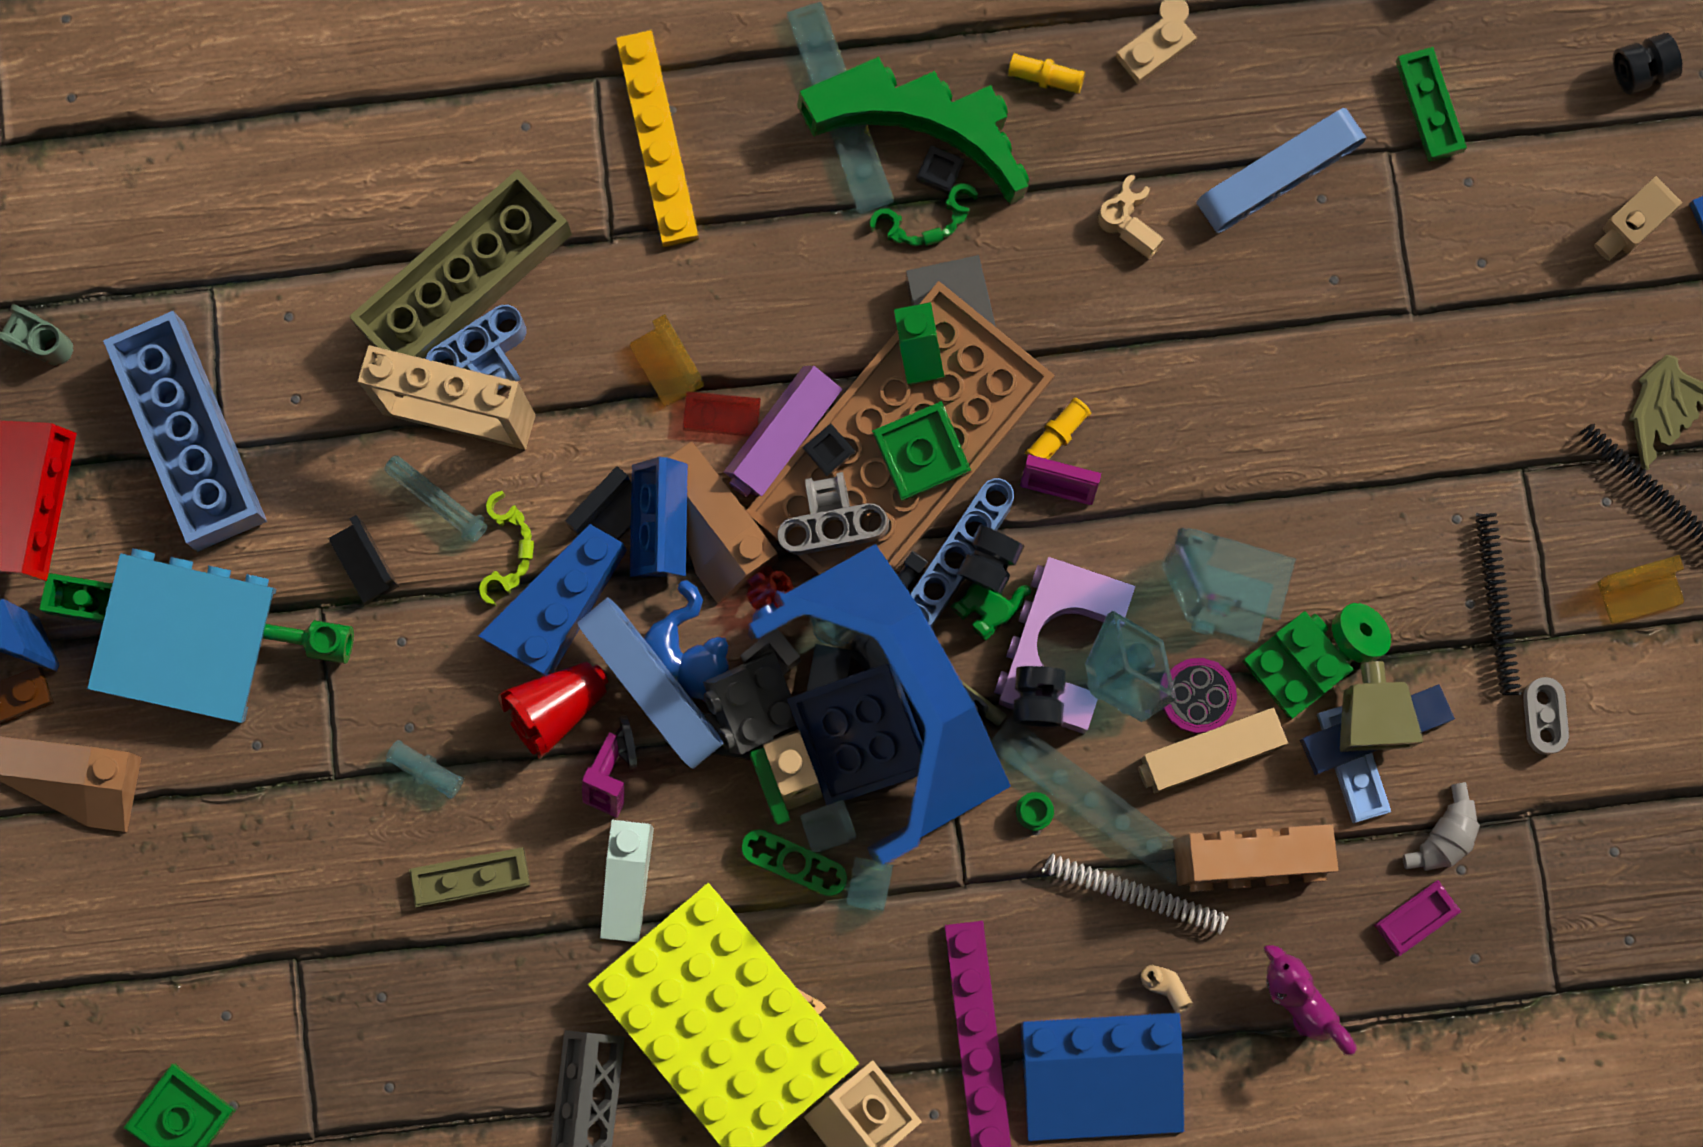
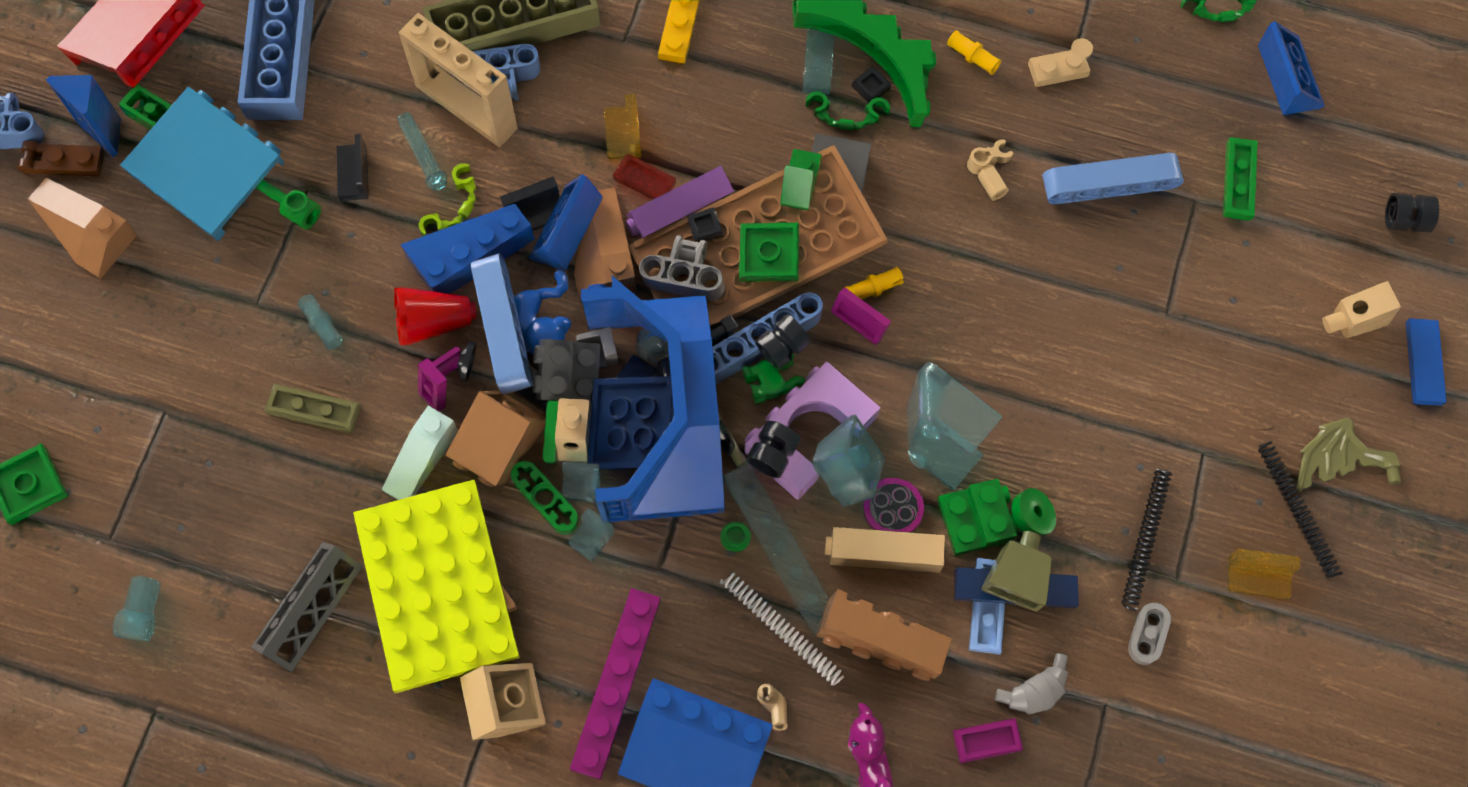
camera: 20 degrees right, 10 degrees down
(706, 819) = (495, 437): none -> medium nougat slope

